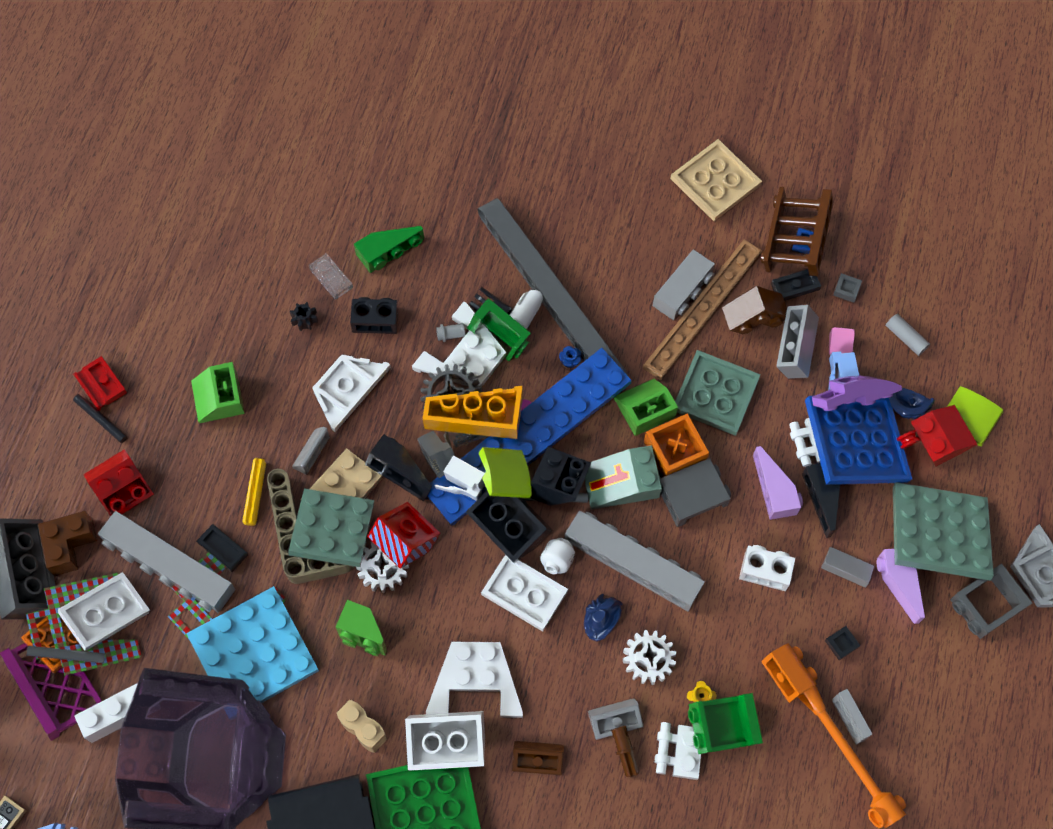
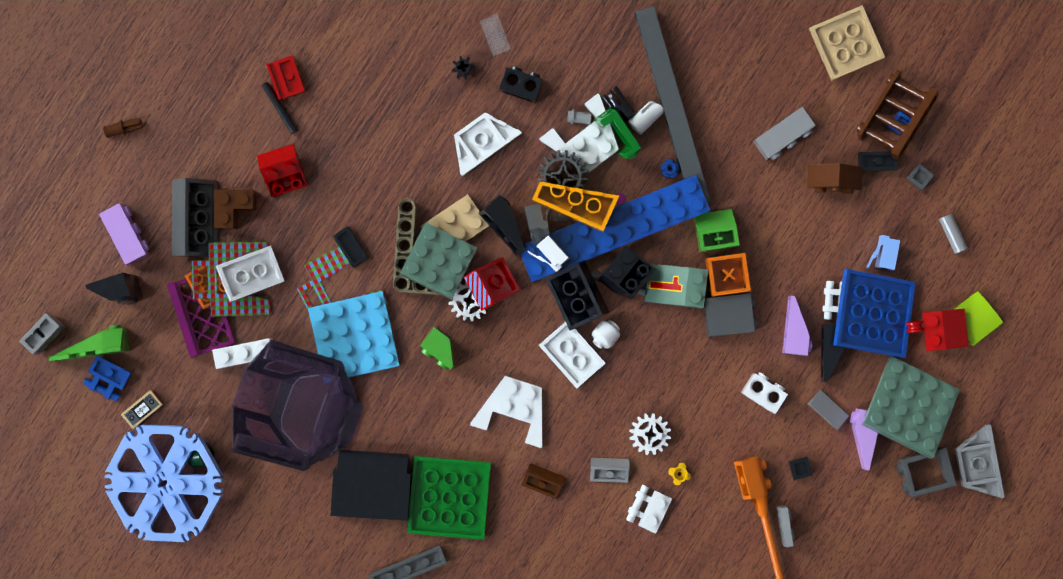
camera: 25 degrees right, 20 degrees up
(65, 654) = (215, 301): dark grey bar -> none
(167, 562) = (308, 250): light grey brick -> none
(217, 393) = (377, 117): bright green slope -> none
(254, 492) = (386, 208): yellow axle -> none
(311, 450) = (439, 186): light grey slope -> none
(357, 723) = (423, 425): tan brick -> none
(384, 246) = (544, 23): green slope -> none
(445, 740) = (478, 450): white slope -> none
(505, 472) = (584, 261): lime slope -> none
(601, 617) = (625, 391): dark blue hat -> none
(625, 751) = (608, 497): reddish brown axle -> none
(634, 560) = (663, 355): light grey brick -> none
(702, 310) = (793, 158): medium nougat tile -> none
(716, 392) = (777, 236): sand green plate -> none
(724, 723) = (688, 501): green panel -> none
(797, 341) = (859, 214): light grey brick -> none
(841, 340) = (896, 223): bright pink slope -> none
(855, 388) = (890, 274): medium lavender slope -> none
(910, 403) = (930, 293): dark blue hat -> none

